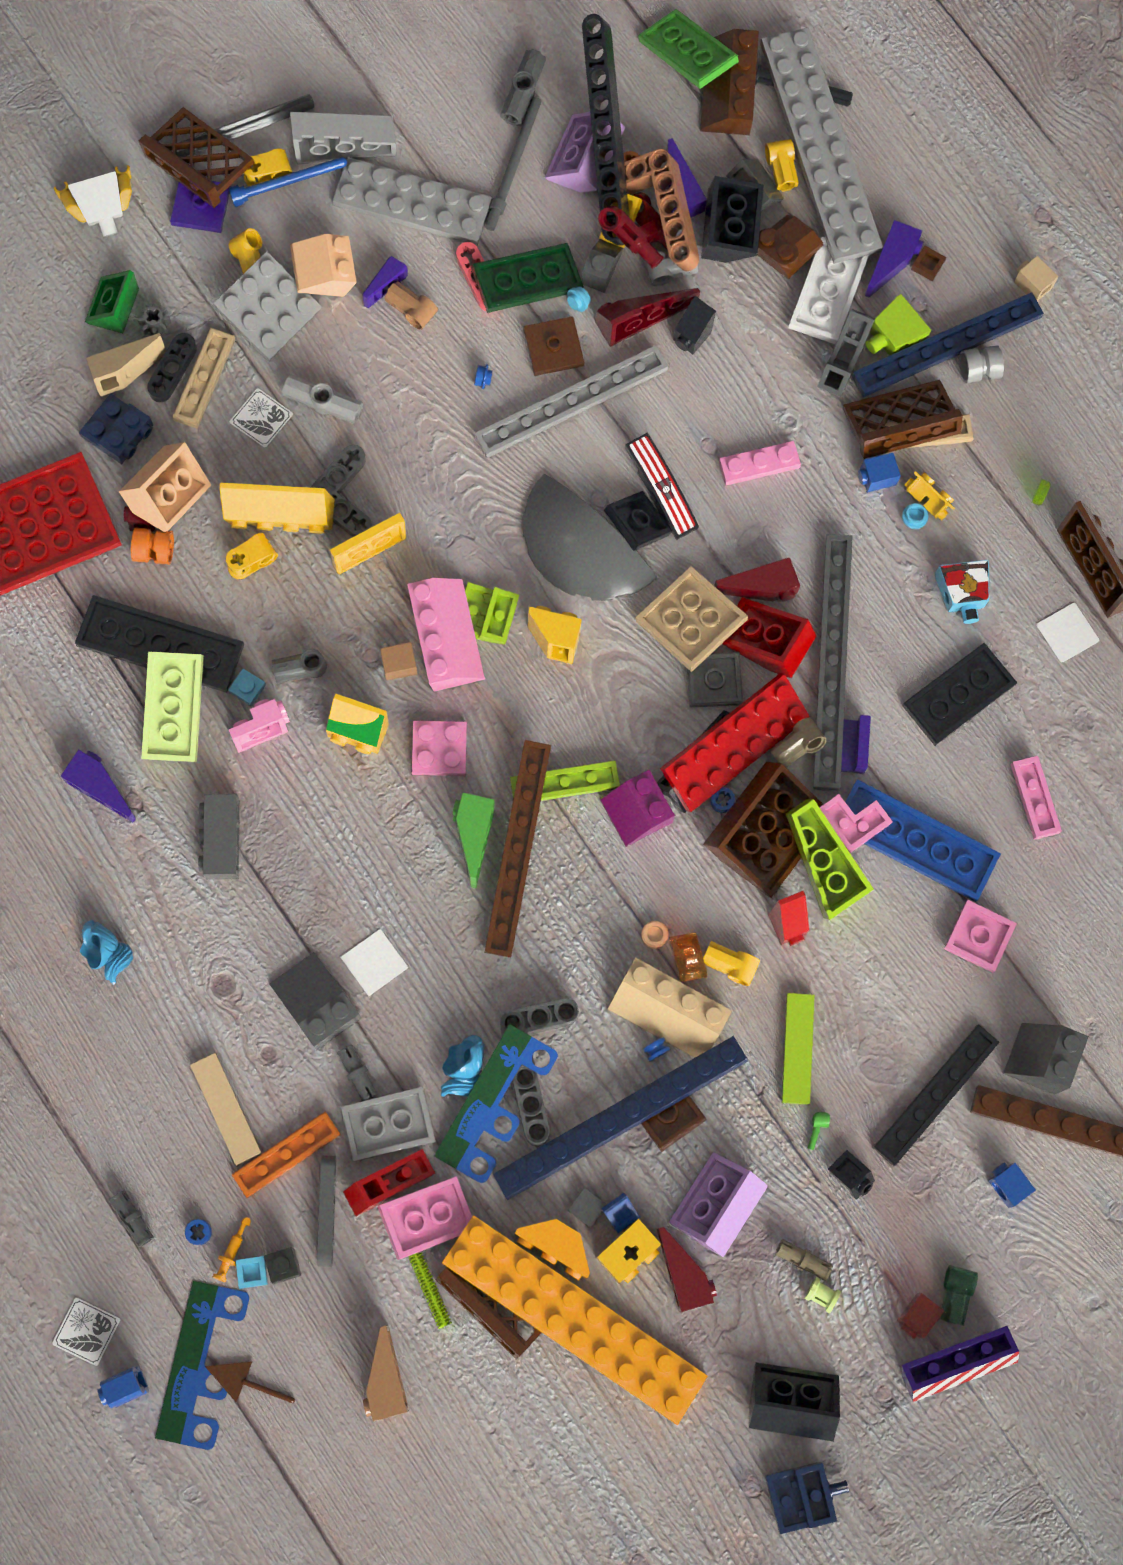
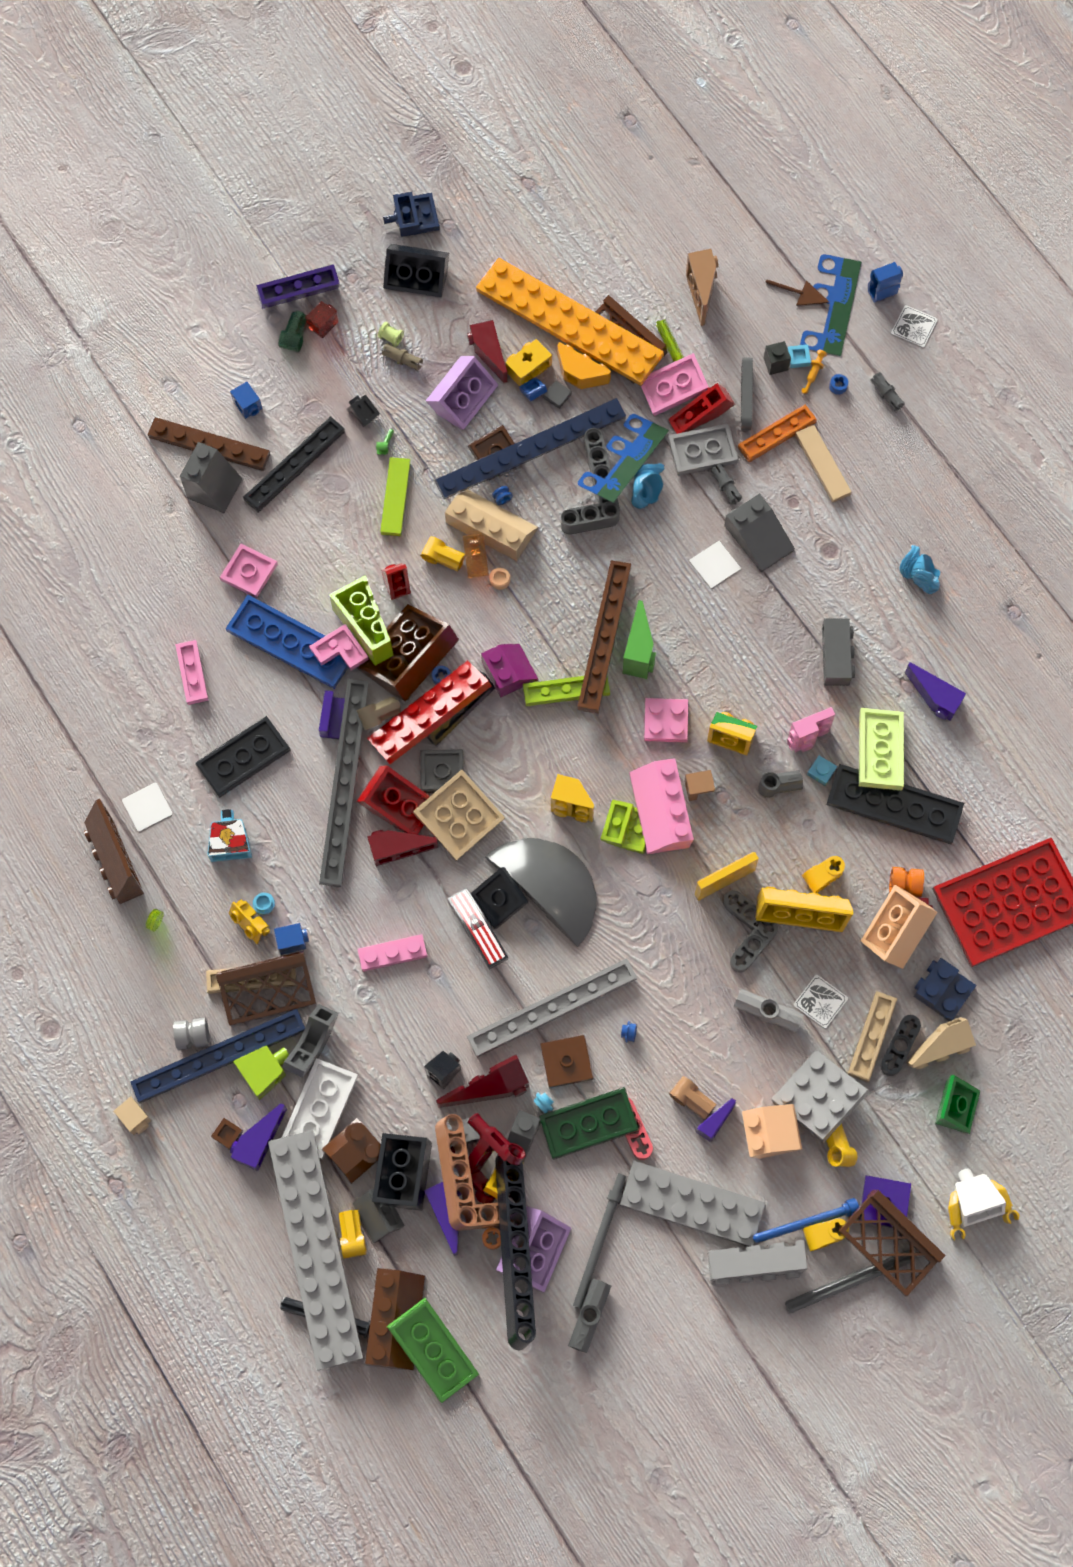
camera: 170 degrees left, 5 degrees down
(154, 320) = (924, 1088): flat silver gear -> none

